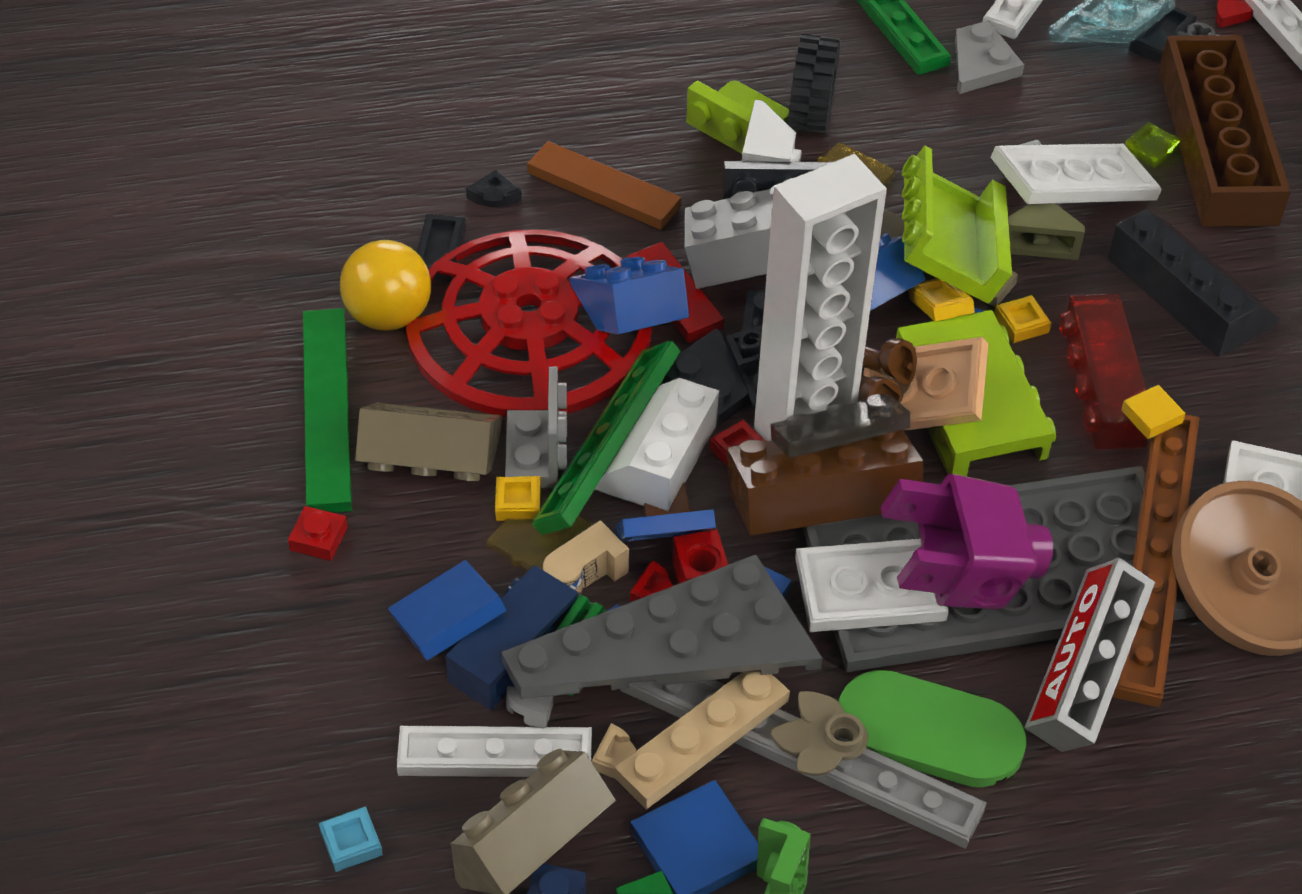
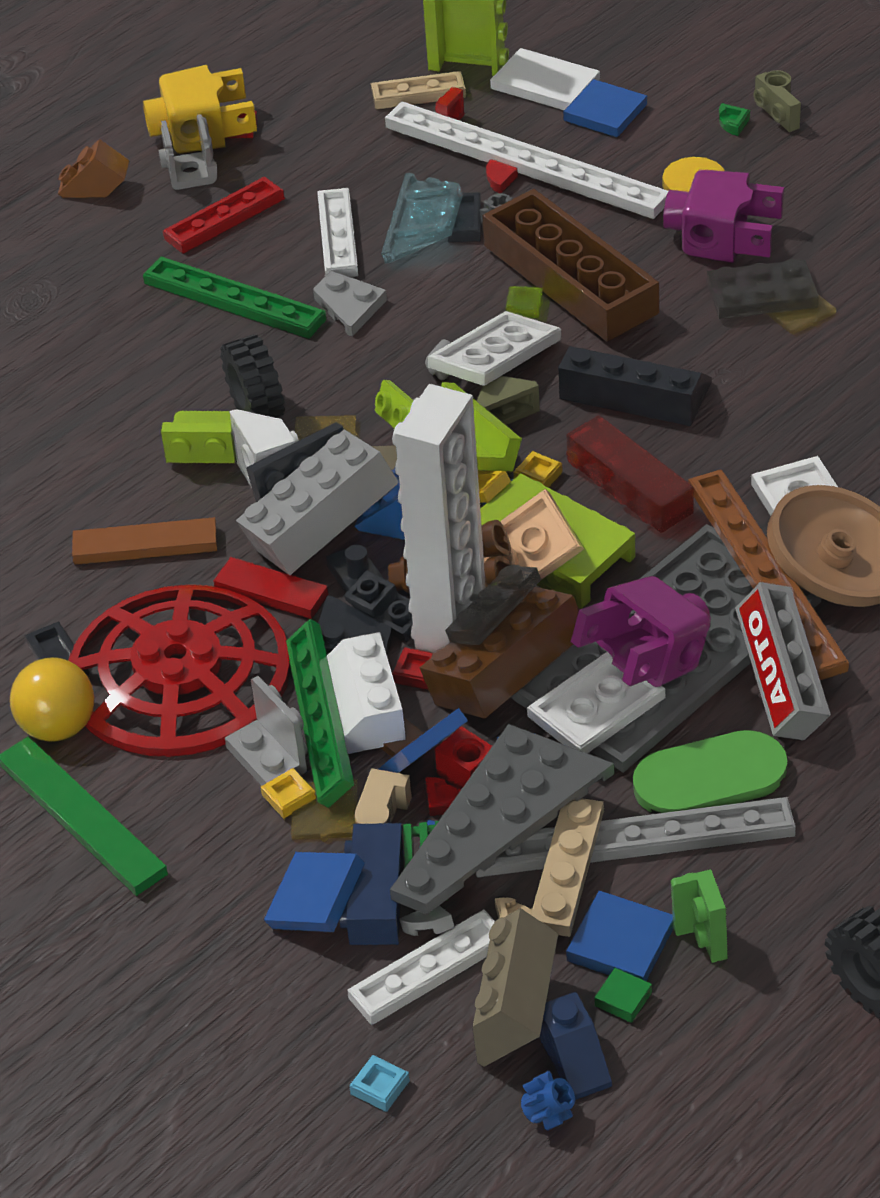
camera: 30 degrees left, 5 degrees down
(317, 533) = (159, 902): red plate -> none
(427, 440) = (187, 789): dark tan slope -> none
(494, 191) = (62, 590): black tile -> none
(632, 295) = (252, 602): blue slope -> none
(816, 734) = (647, 817): dark tan plate -> none
(1153, 411) = (691, 481): yellow tile -> none

